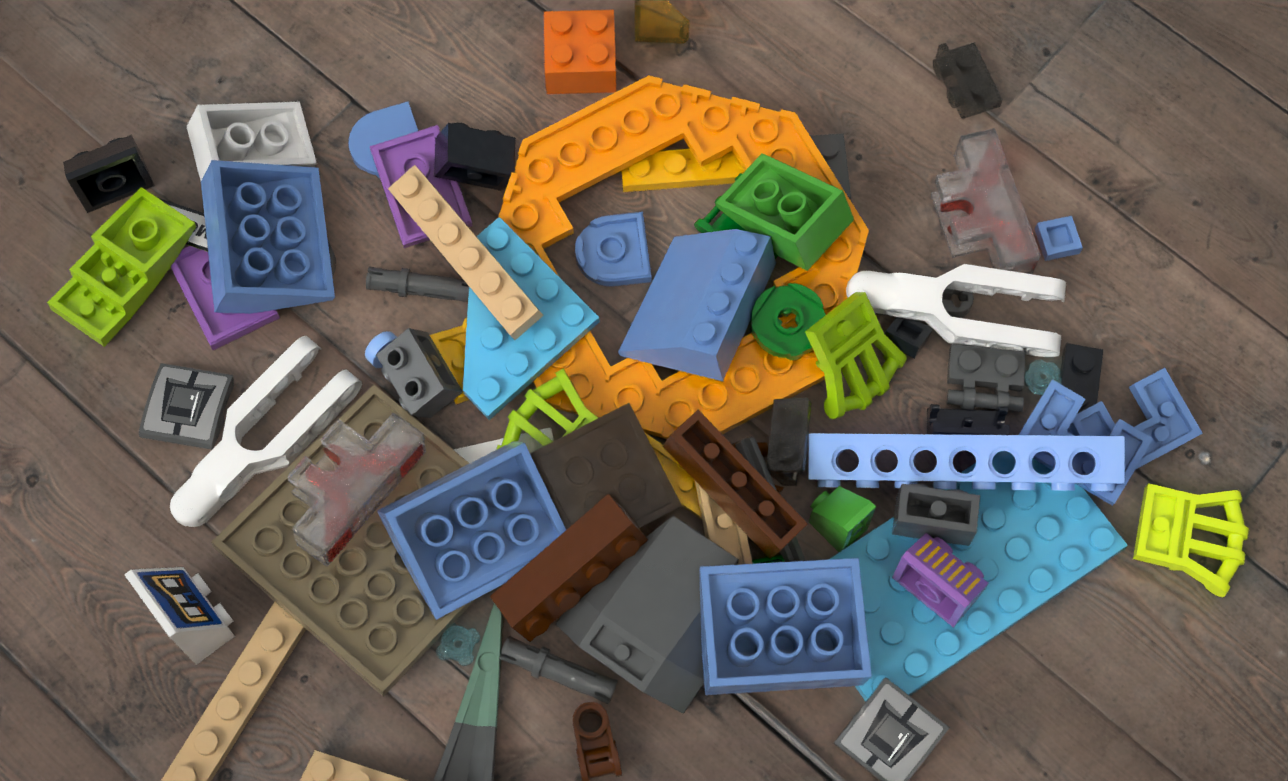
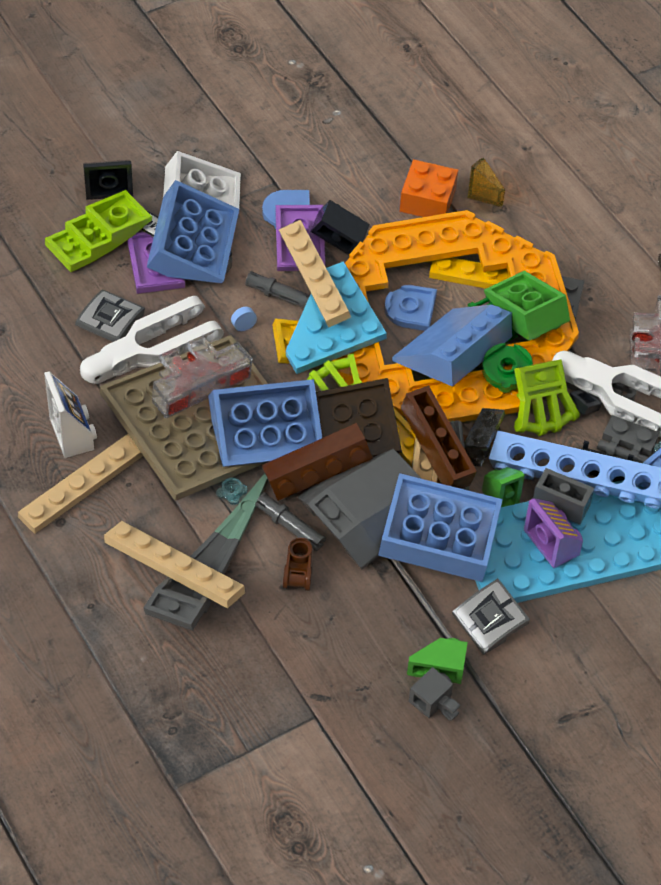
camera: 15 degrees right, 15 degrees down
(418, 373) = (261, 335): dark grey brick -> none

